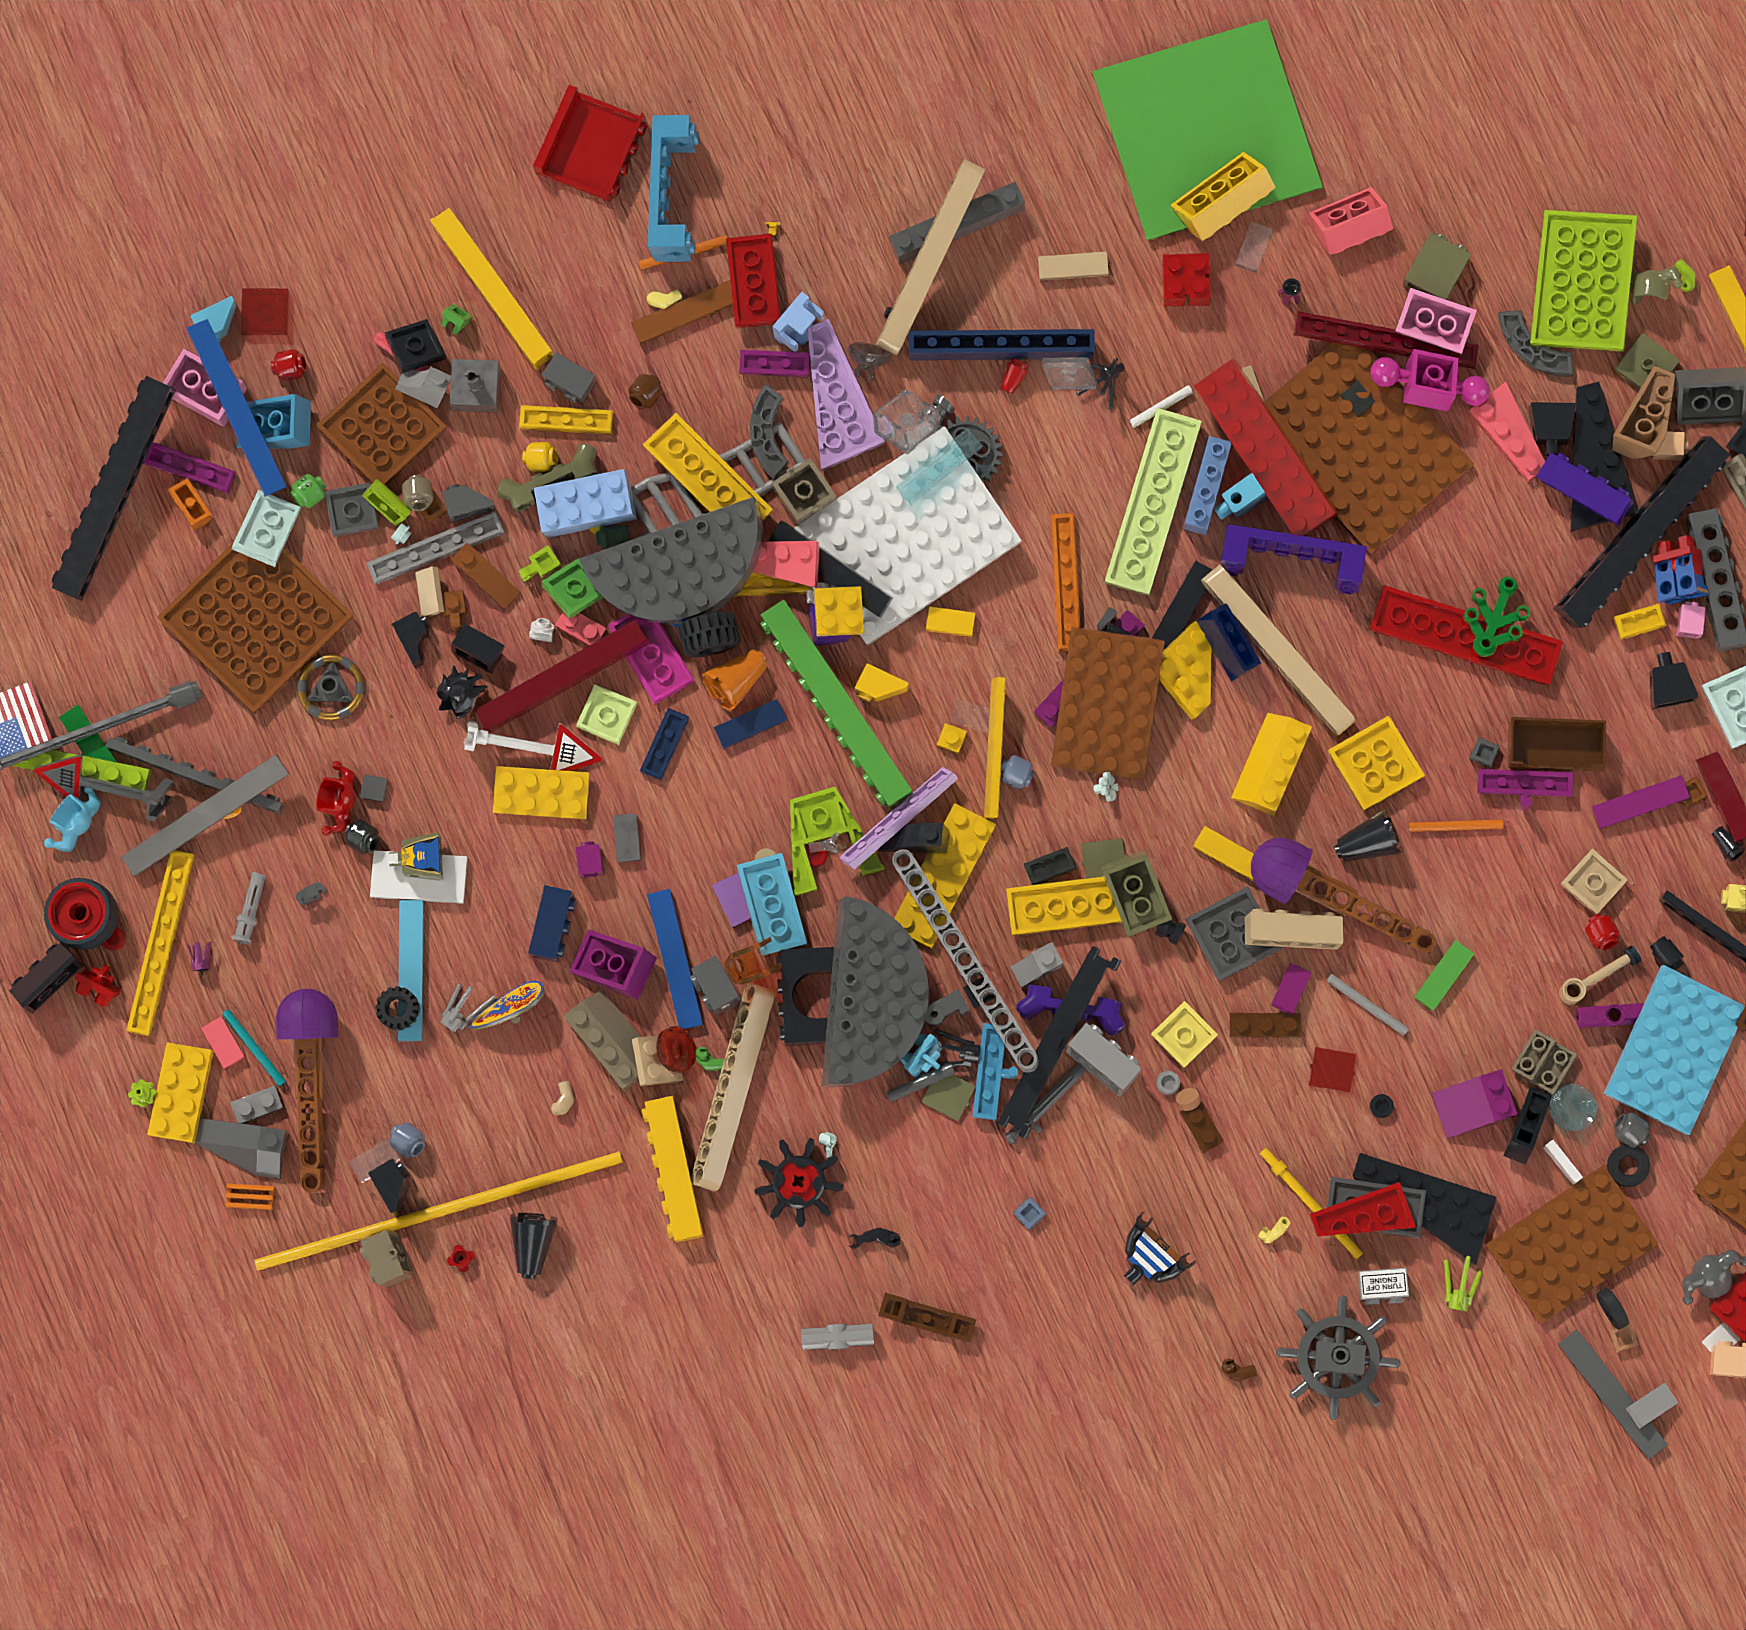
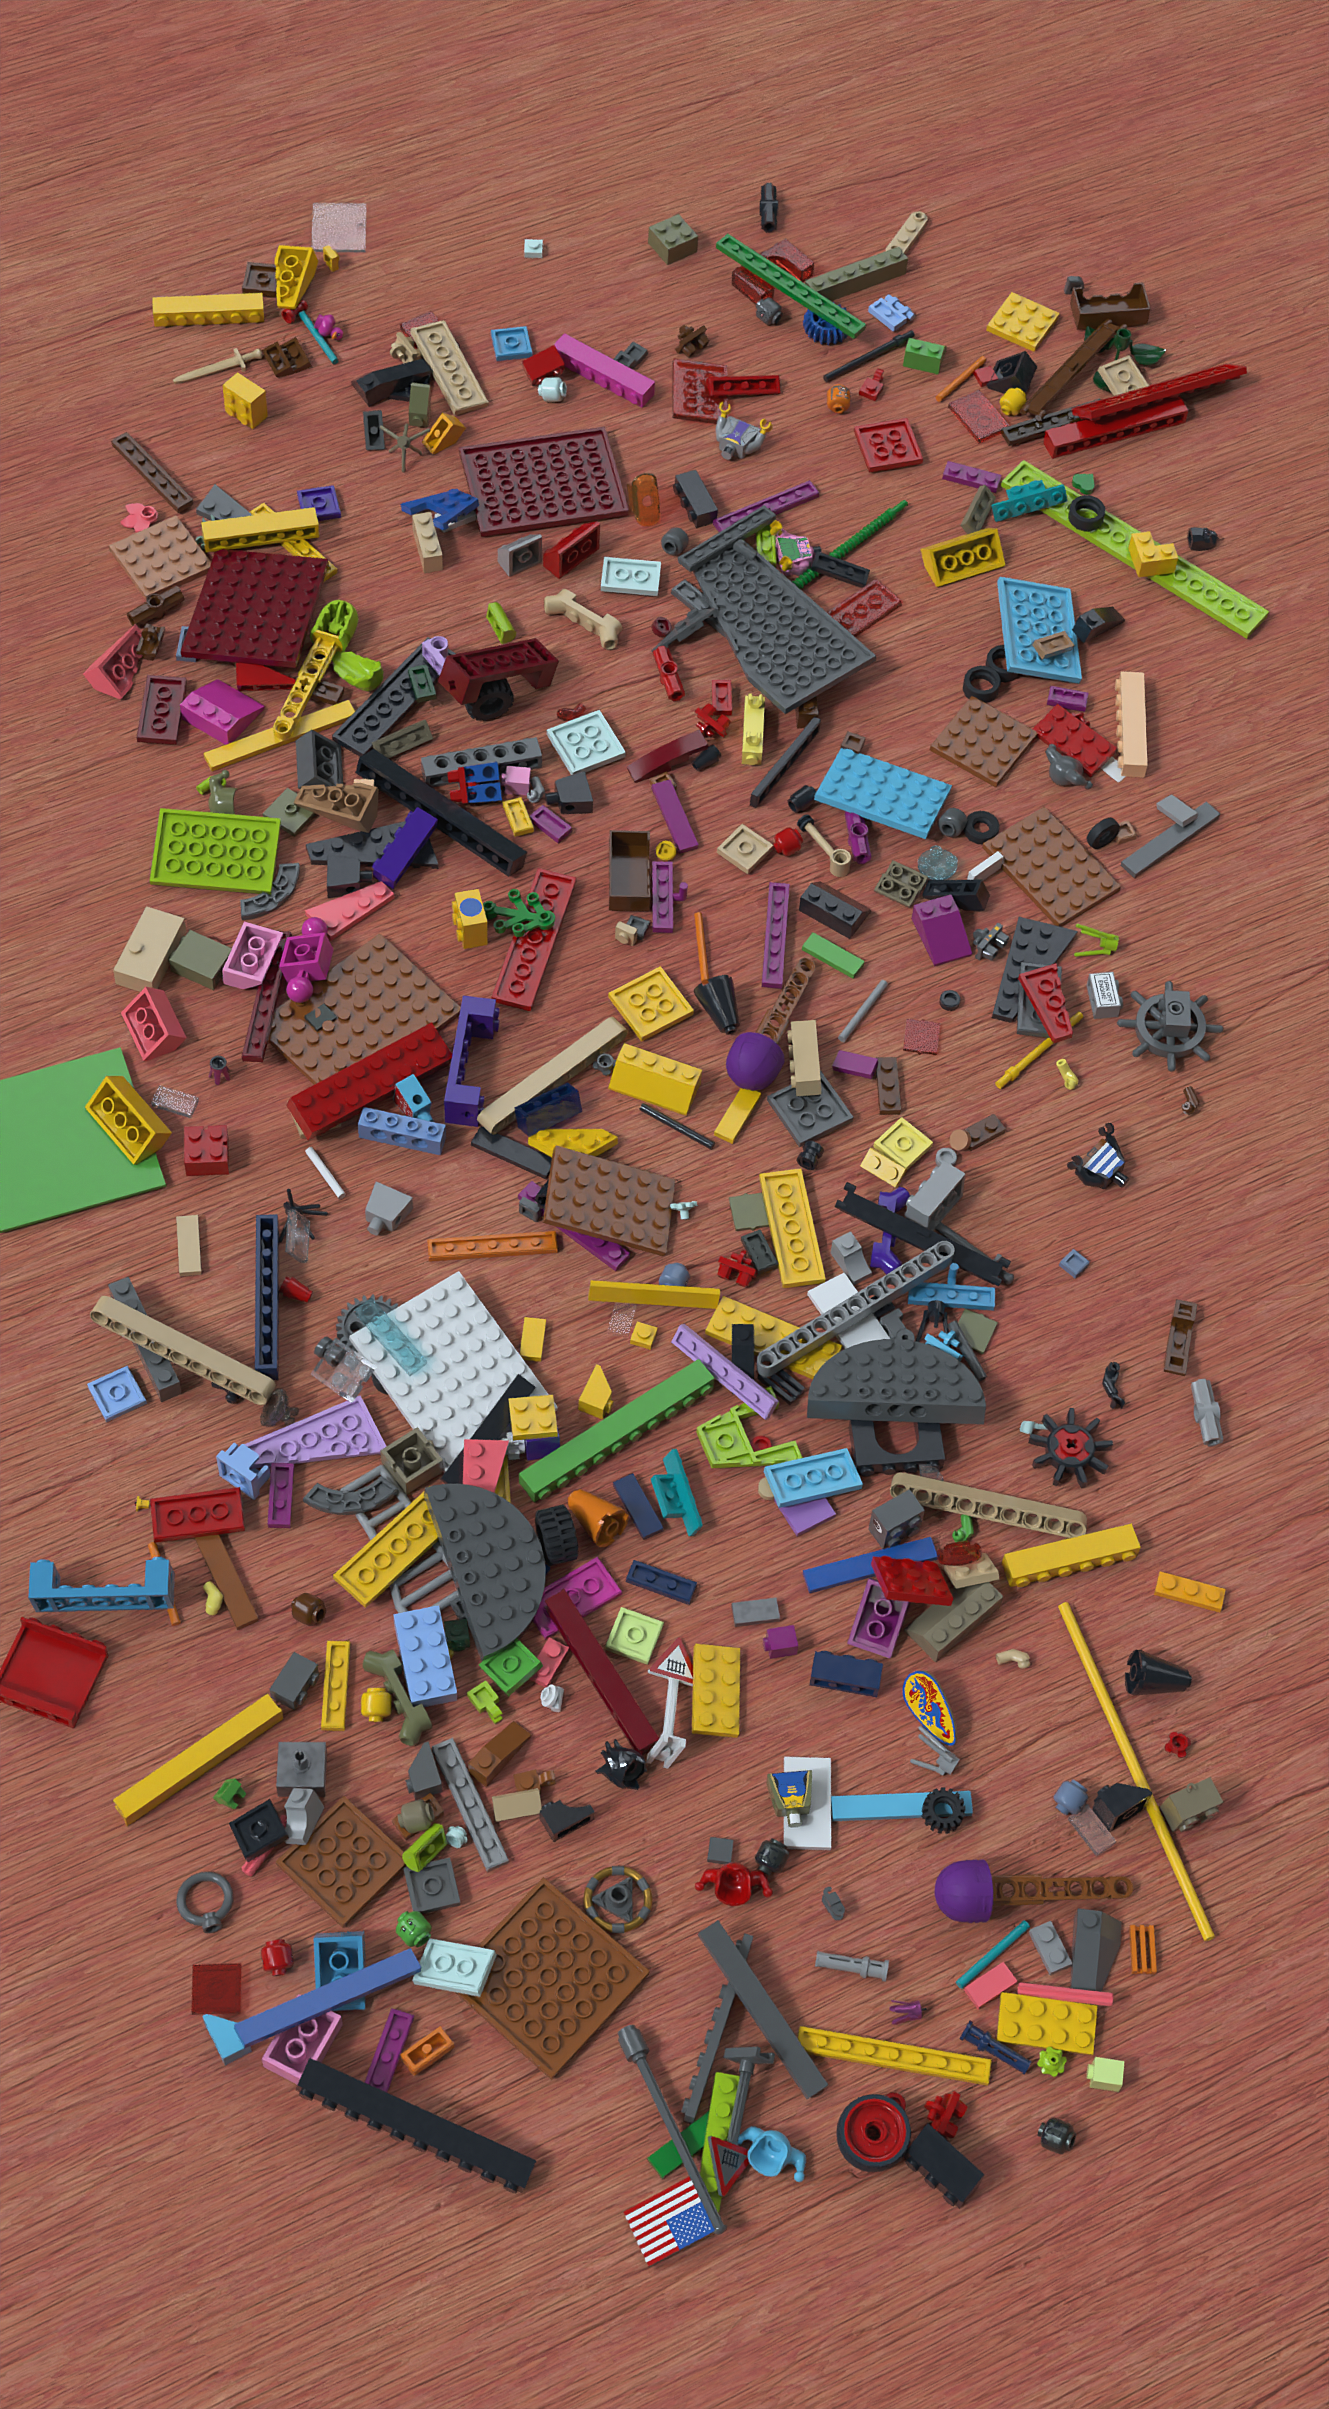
camera: 105 degrees left, 20 degrees down
(69, 1090) = (1057, 2135): none -> pearl dark grey head
(126, 1144) = (1106, 2074): none -> yellowish green brick
(165, 1031) = (1021, 2064): none -> dark blue pin
(205, 1112) = (1066, 1994): none -> coral axle
(329, 304) = (212, 1920): none -> dark grey piece
(477, 648) = (574, 1755): black hinge -> none
(630, 1292) = (1189, 1592): none -> light orange plate
(641, 993) = (911, 1581): none -> red plate
(749, 963) = (884, 1482): clear orange piece -> none
(760, 759) = (675, 1494): none -> teal bracket
(773, 1030) = (928, 1472): none -> clear tile
(827, 845) = (753, 1433): clear bar -> none
(880, 877) = (799, 1389): none -> black tile
(898, 199) = (116, 1393): none -> light blue tile
(991, 947) = (833, 1293): none -> white tile
(1030, 842) = (746, 1273): none -> red hips
(1110, 468) = (386, 1208): none -> light grey torso
(1136, 893) = (781, 1175): olive slope -> none
(1153, 502) = (417, 1175): yellowish green plate -> none
(1153, 1010) = (883, 1167): none -> yellow plate
(1214, 786) = (677, 1126): none -> black bar
(1296, 703) = (604, 1059): none -> dark grey plate
(1447, 211) = (148, 950): none -> tan brick
(1466, 1165) = (986, 939): none -> dark grey hips
(1470, 737) = (625, 933): none -> tan plate
(1471, 910) = (775, 935): none -> magenta plate
(1485, 561) = (470, 919): none -> yellow brick
(1511, 981) = (833, 909): none -> black slope
(1590, 790) = (666, 851): none -> yellow tile
(1632, 659) = (550, 824): none -> magenta tile
(1677, 645) = (537, 792): none -> light grey arm

